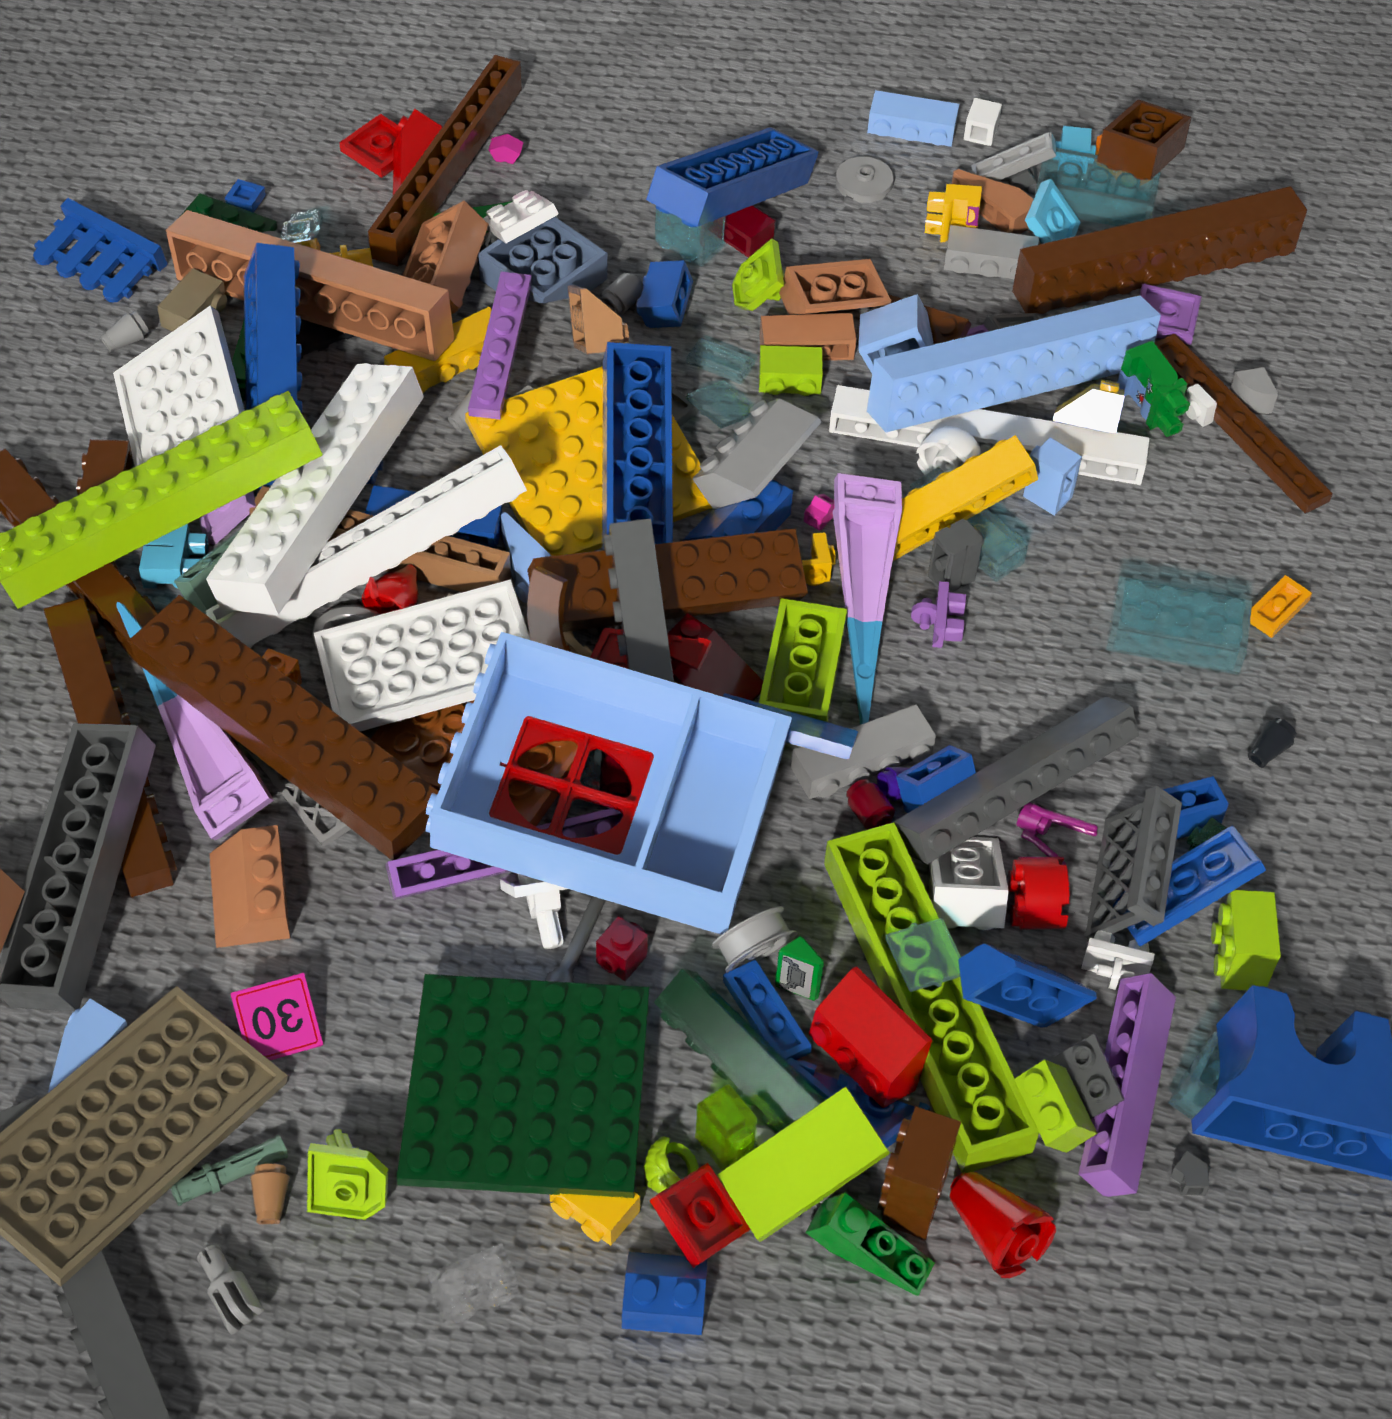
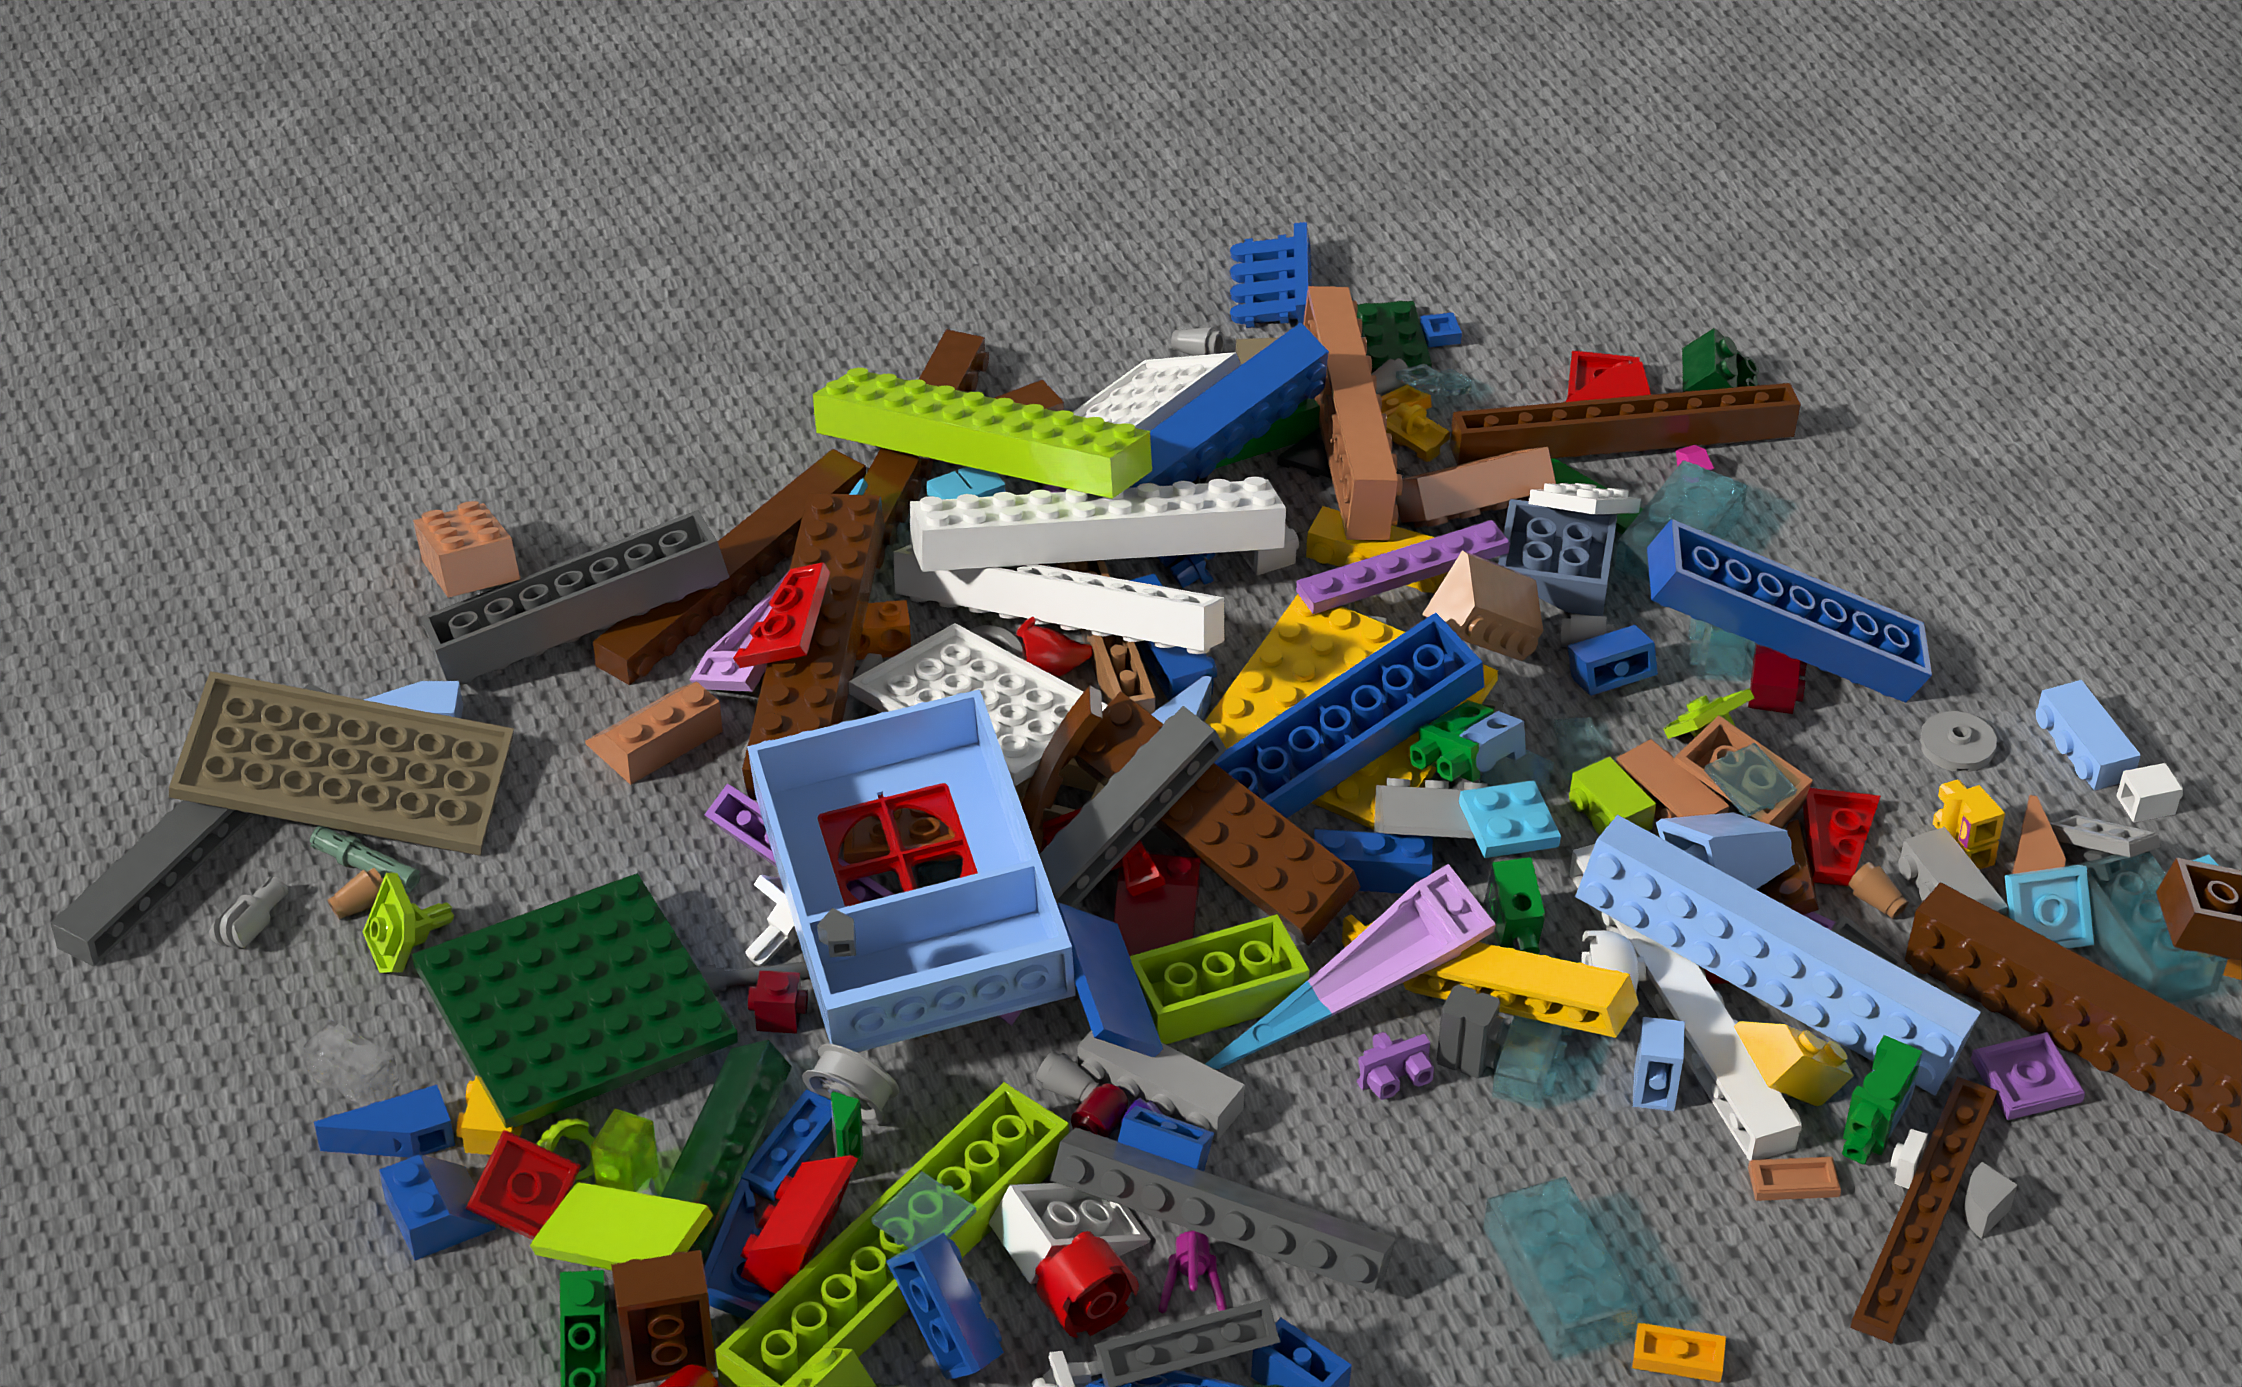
camera: 60 degrees right, 10 degrees down
(274, 723) = (791, 620): none -> red wing
(278, 1017) = (532, 810): dark pink piece -> none
(432, 85) = (1716, 364): none -> dark green slope
(565, 1277) = (393, 1127): none -> blue slope
(566, 178) = (1690, 497): none -> clear light blue brick
(677, 852) = (838, 933): none -> dark grey piece
(703, 415) = (1468, 744): none -> green hips
(798, 423) = (1509, 819): none -> medium azure plate
(821, 807) = (1065, 1077): none -> light grey cone
(852, 286) = (1750, 780): none -> clear light blue piece
(857, 459) = (1520, 917): none -> green torso
(904, 281) = (1837, 832): none -> red wing
(966, 290) = (1878, 890): none -> medium nougat cone
(1170, 470) = (1794, 1178): none -> nougat tile

